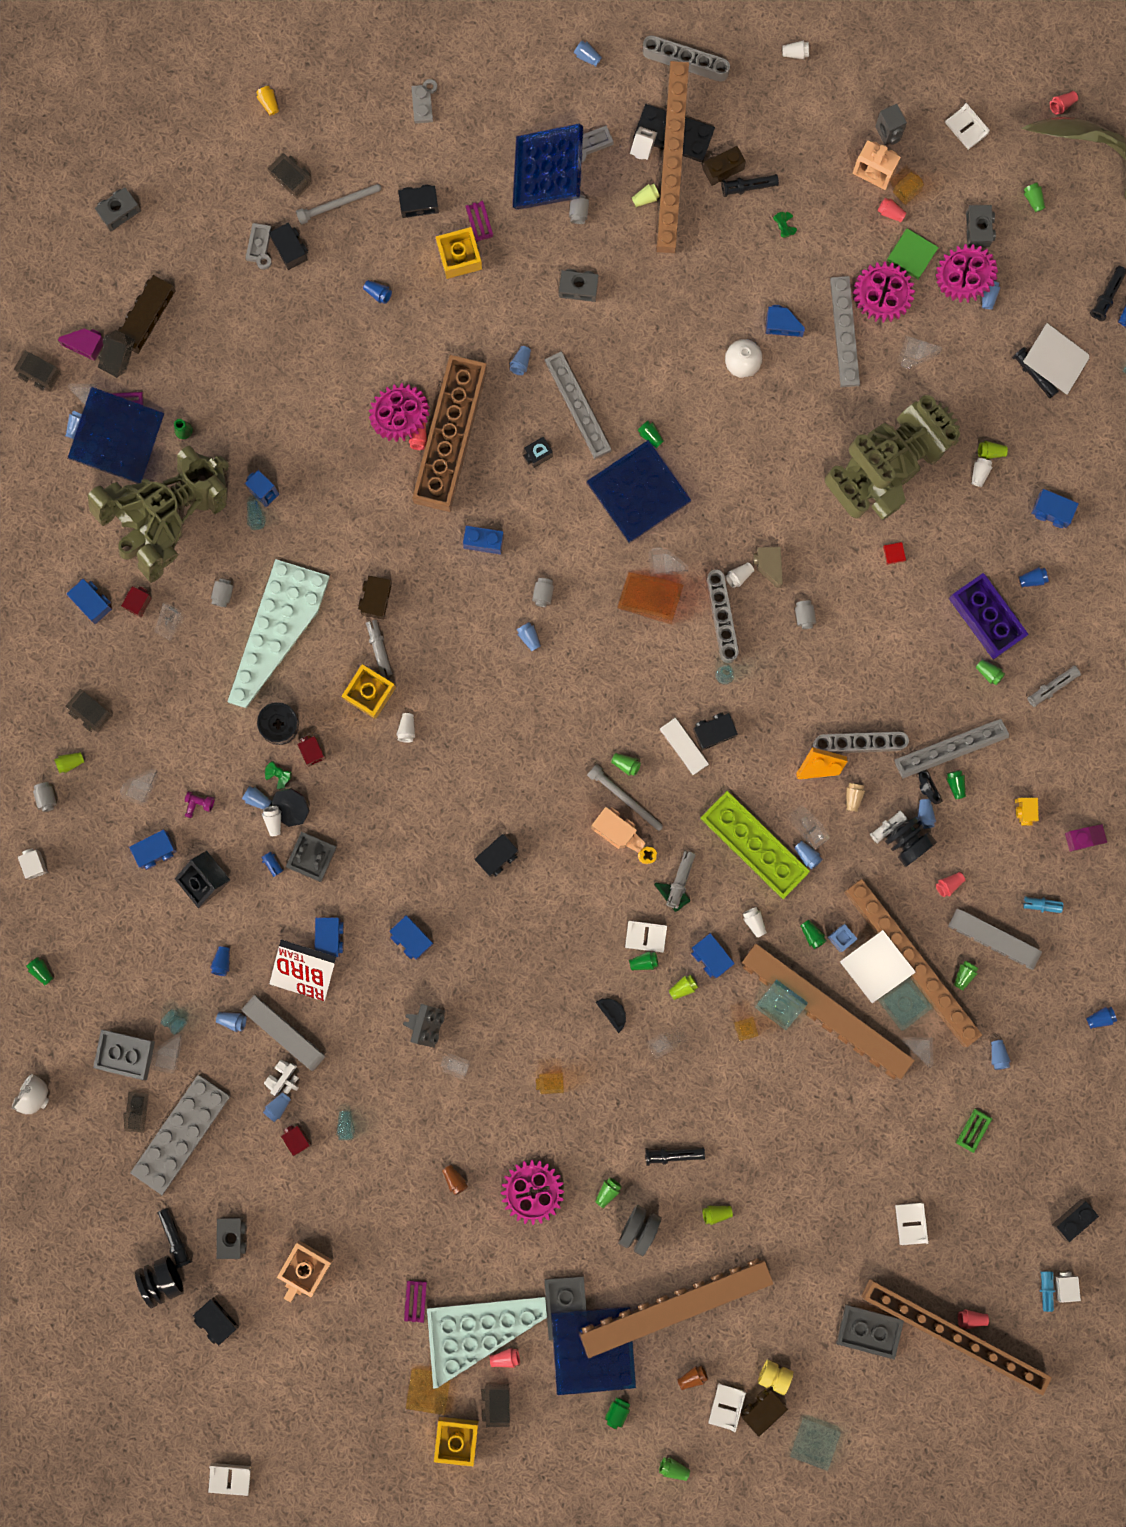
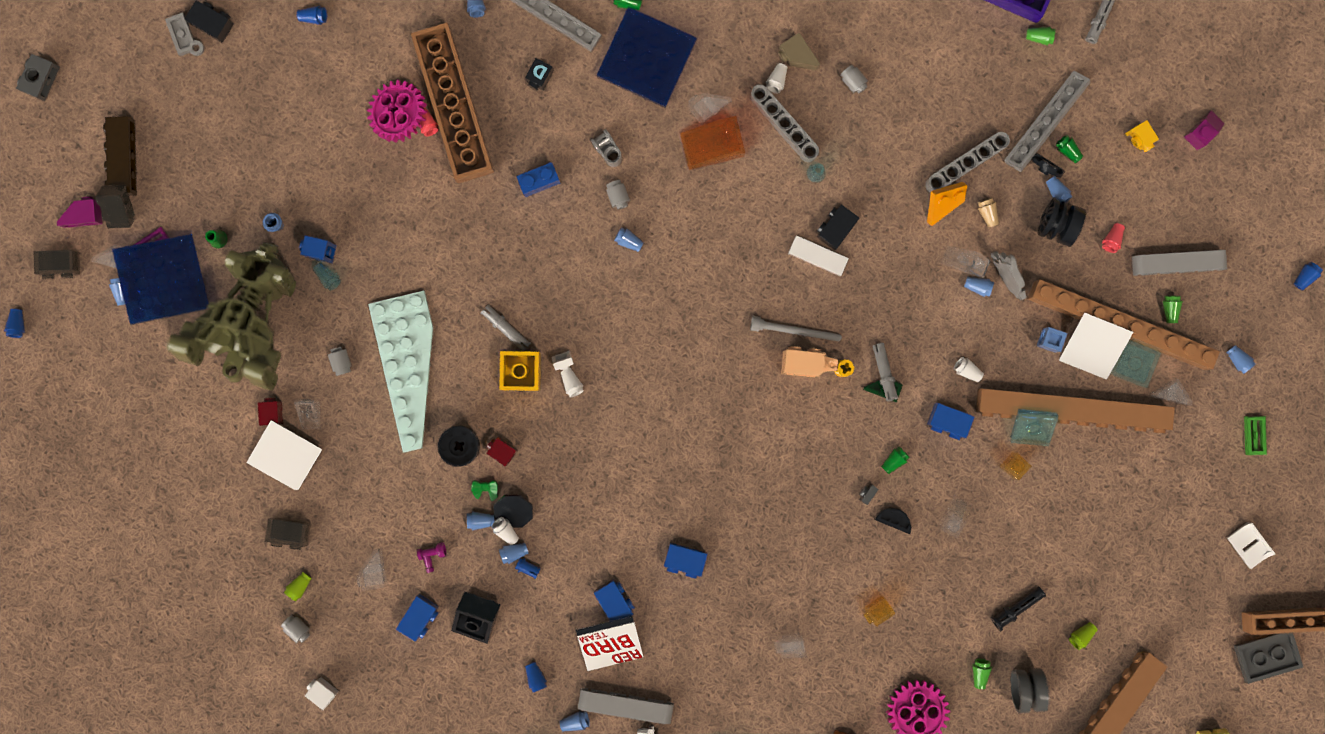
camera: 30 degrees left, 5 degrees up
(89, 601) = (229, 437): blue brick -> none
(126, 644) = (284, 455): none -> white sticker
(236, 440) = (269, 221): none -> medium blue cone
(268, 843) = (513, 552): none -> medium blue cone
(311, 857) = (557, 542): dark grey plate -> none
(375, 597) = (475, 285): dark brown brick -> none
(410, 705) = (562, 361): none -> white plate
(425, 1025) = (743, 627): dark grey plate -> none
(497, 855) = (715, 446): black brick -> none
(558, 546) = (605, 146): none -> light grey piece
(602, 975) = (867, 493): none -> dark grey plate
(626, 764) = (778, 300): bright green cone -> none
(655, 940) = (892, 435): white piece -> none
(683, 987) = (941, 462): lime cone -> none
(755, 845) = (929, 304): lime plate -> none
(813, 935) = (1024, 351): green cone -> none
(839, 859) = (1009, 273): none -> light grey tile
(888, 827) = (1033, 220): white pin -> none
(1043, 905) = (1202, 209): dark azure axle -> none

